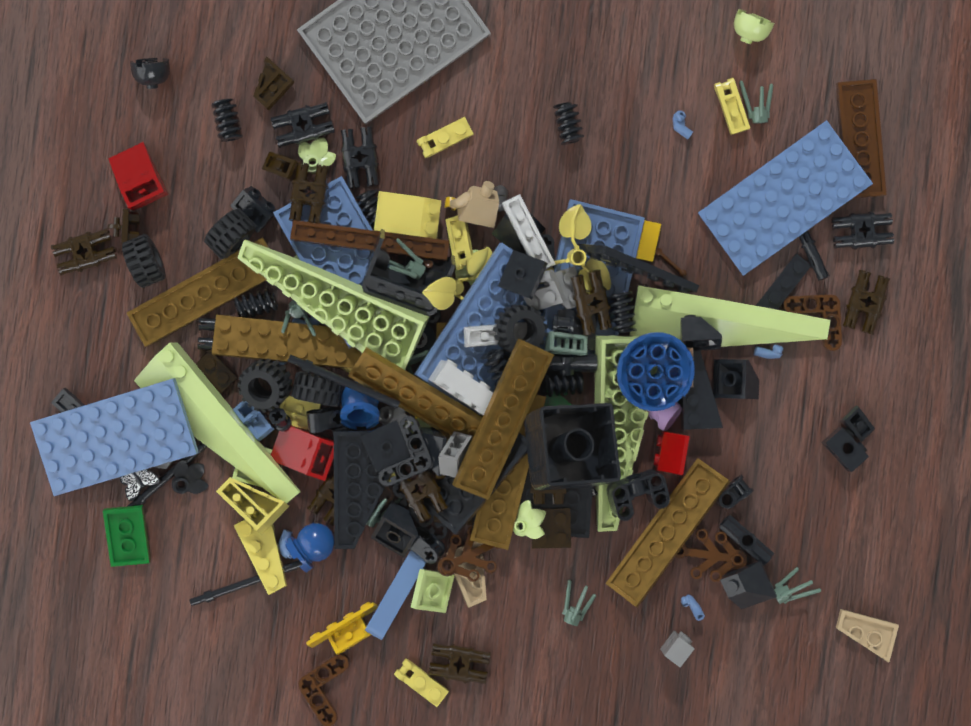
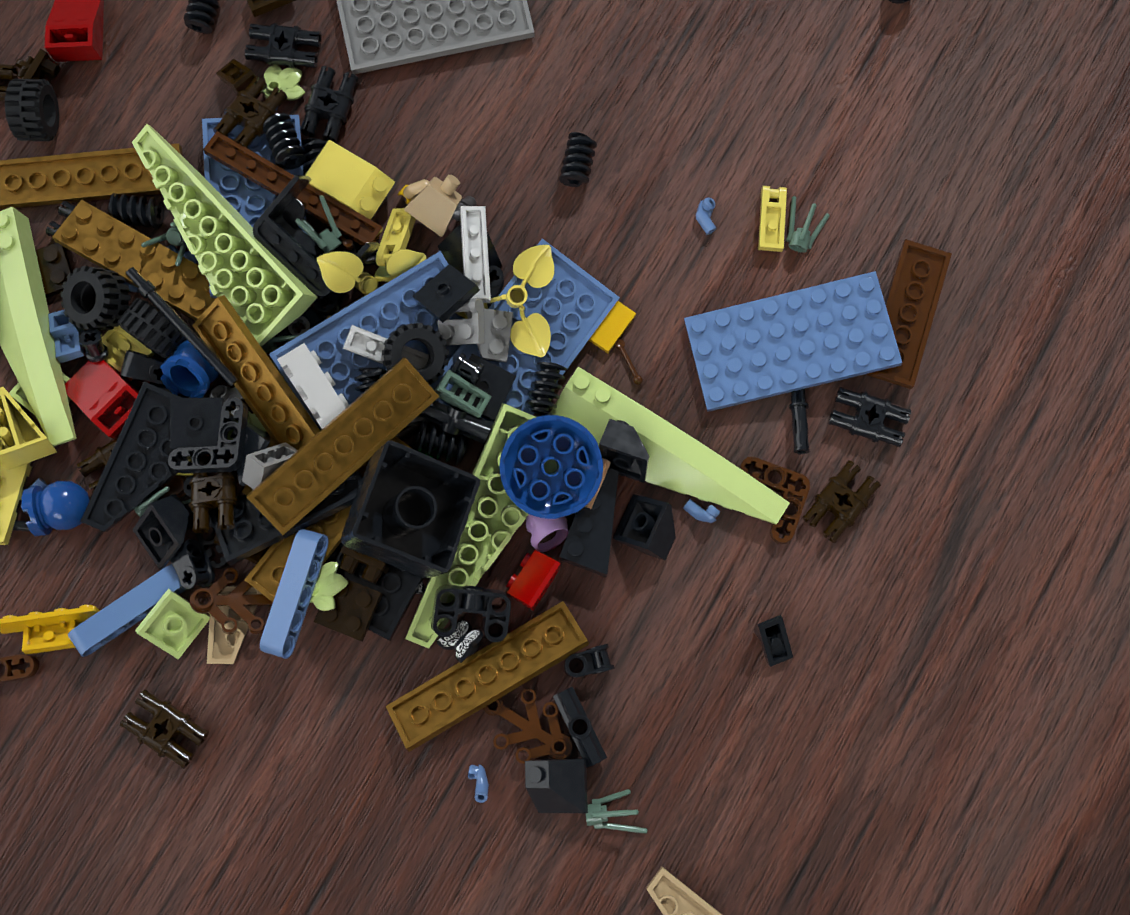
camera: 20 degrees right, 10 degrees down
(229, 233) = (136, 110): black tyre -> none
(255, 207) = (185, 109): black bracket -> none
(344, 206) = (283, 141): none -> black piece
(422, 682) = (108, 734): light yellow plate -> none
(445, 137) = (434, 122): light yellow plate -> none
(512, 535) = (294, 593): none -> medium blue beam
(574, 614) = (329, 727): sand green plant -> none
(583, 298) = (524, 352): dark brown pin -> none
(630, 264) = (580, 338): black wing -> none
(642, 516) = (462, 640): none -> black animal
(677, 648) = (435, 825): light grey brick -> none
(752, 27) = (830, 139): yellowish green cylinder -> none
(784, 283) = (754, 439): black plate -> none
(835, 443) = (747, 682): black brick -> none

